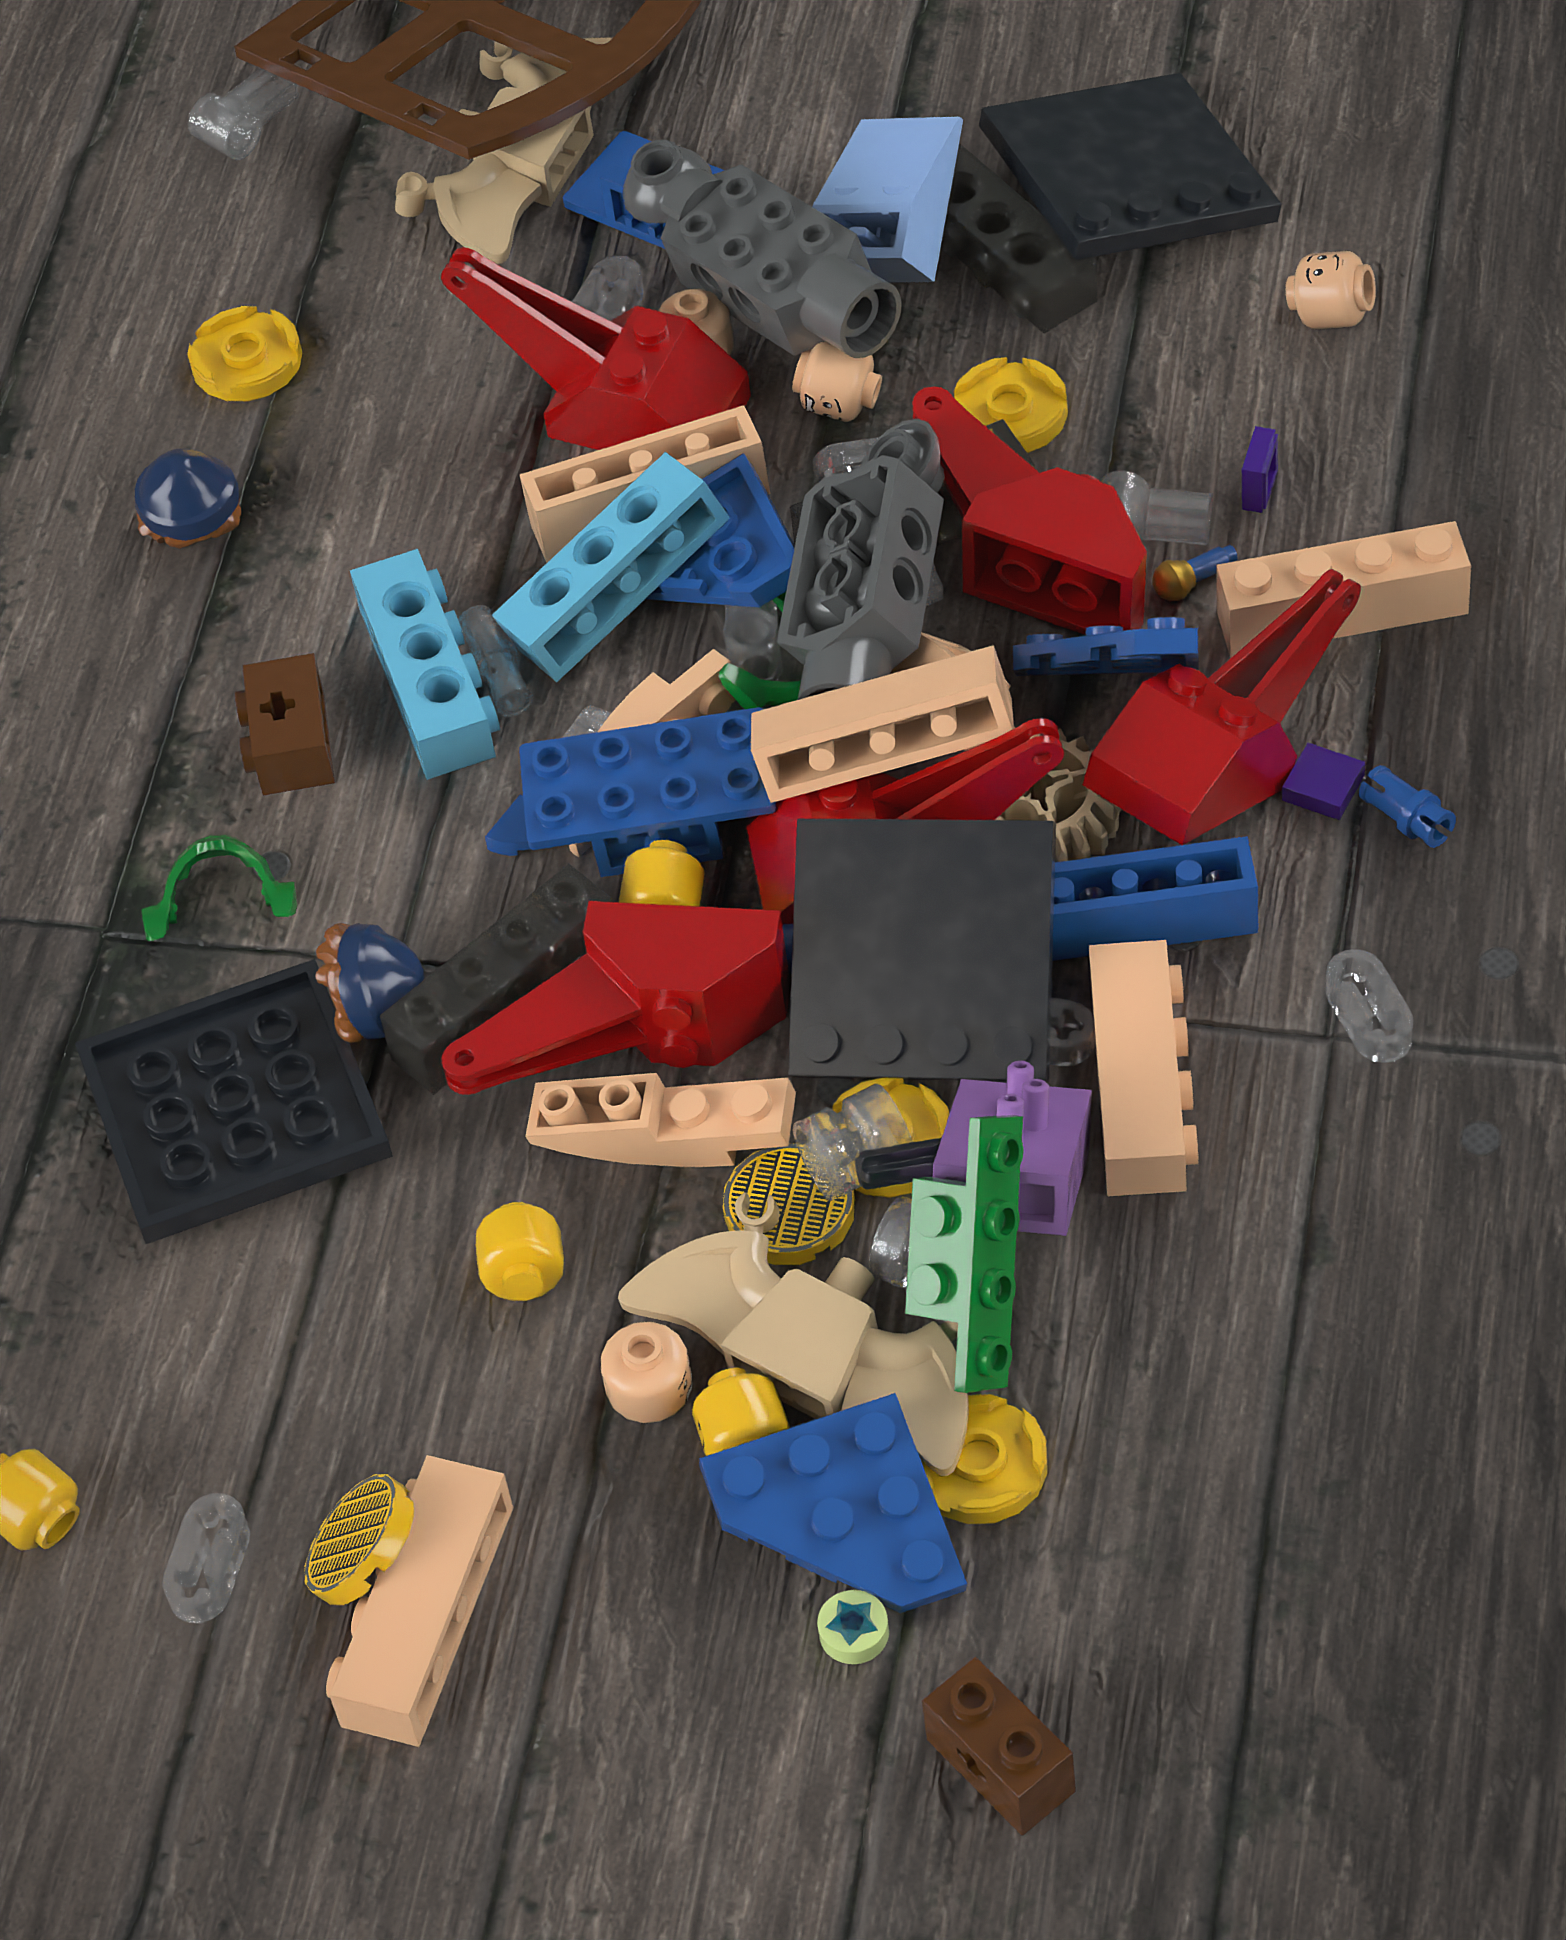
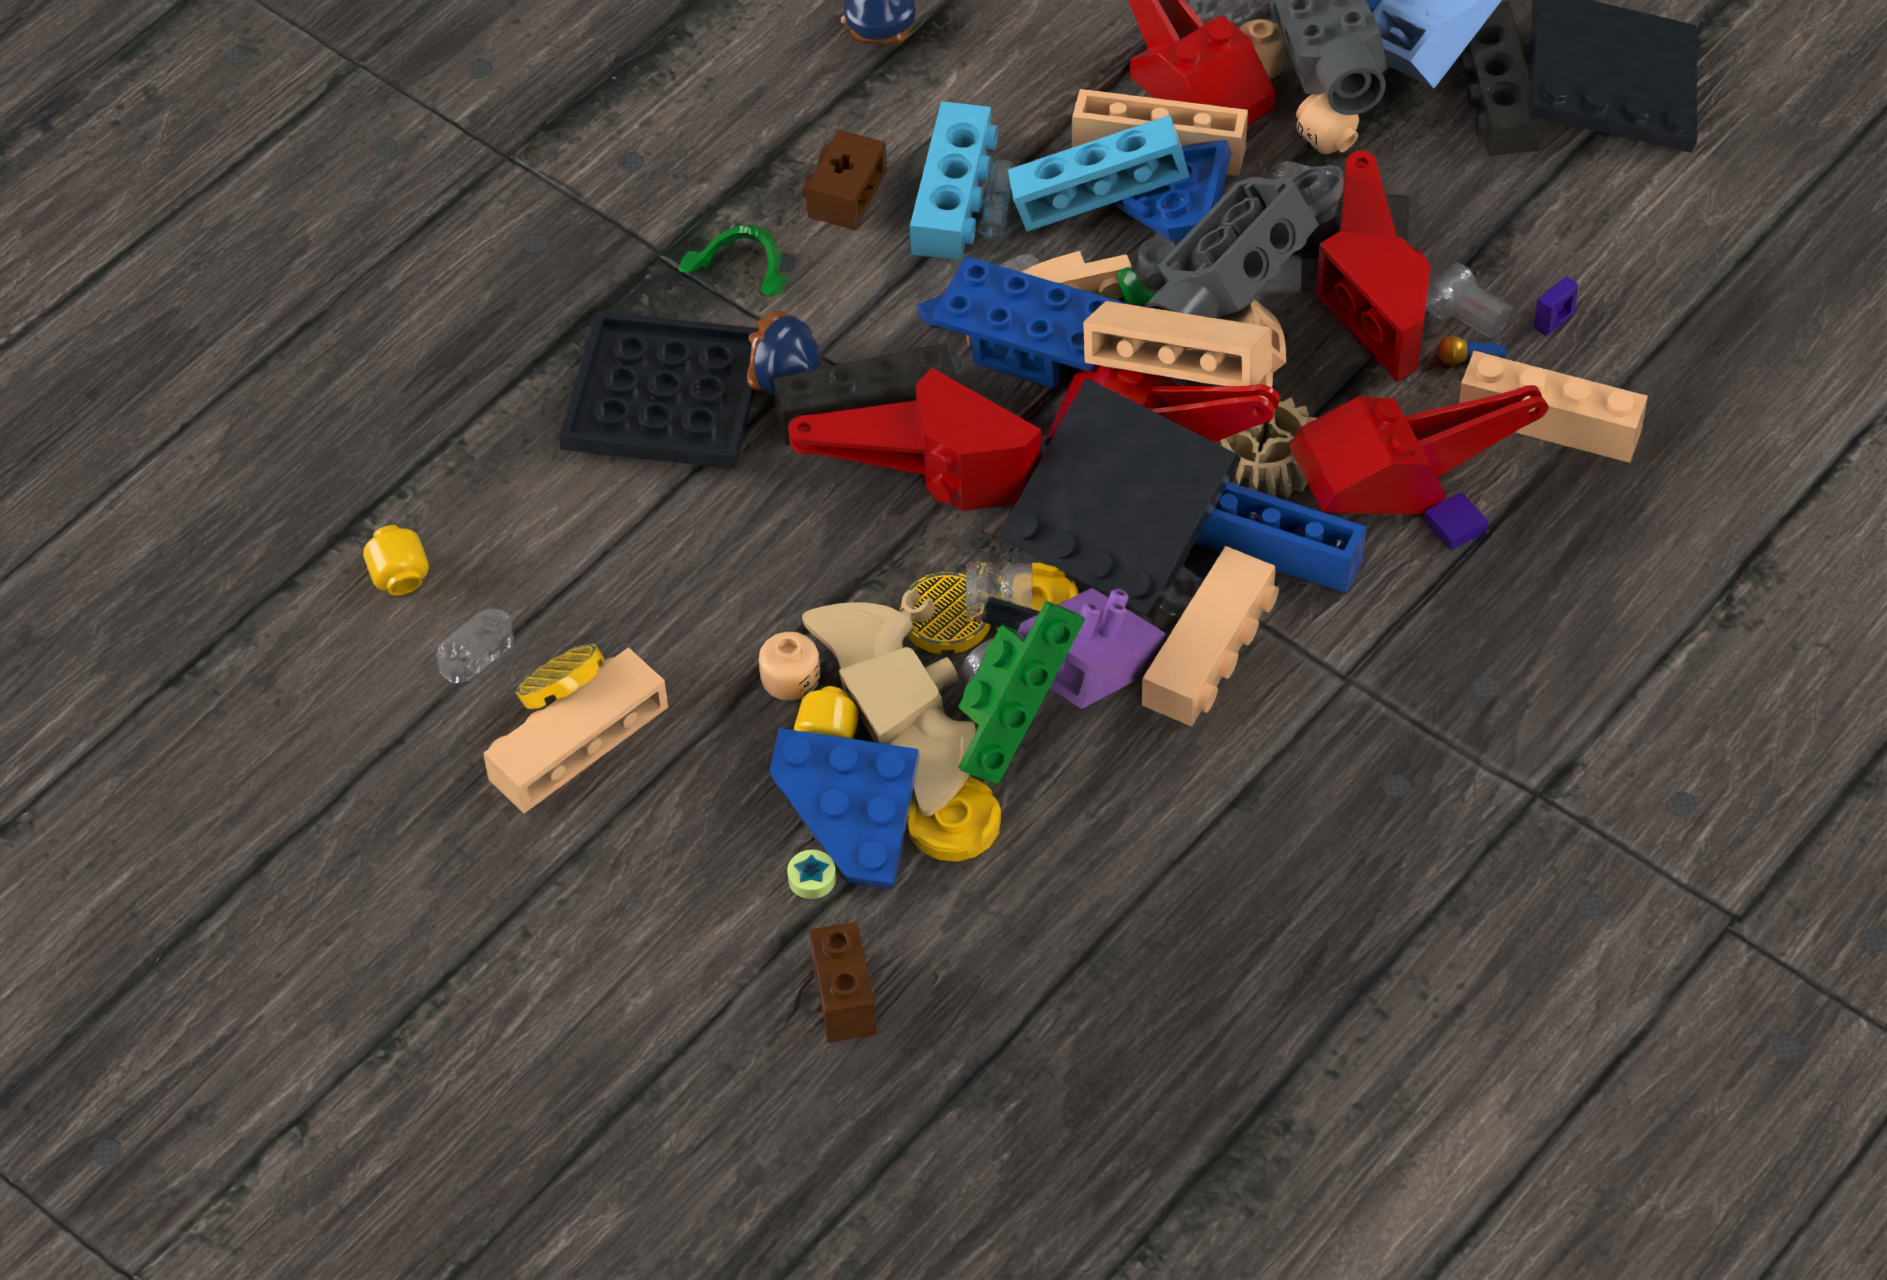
camera: 25 degrees right, 0 degrees up
(519, 1252) = (766, 560): yellow head -> none
(652, 1124) = (896, 525): light nougat slope -> none
(662, 876) = (1001, 381): yellow head -> none
(1023, 394) = (1436, 190): yellow tile -> none
(1110, 650) = (1362, 368): blue plate -> none
(1331, 290) = (1688, 212): light nougat head -> none
(1357, 1011) = (1374, 670): clear beam -> none
(1412, 809) = (1496, 566): blue pin -> none

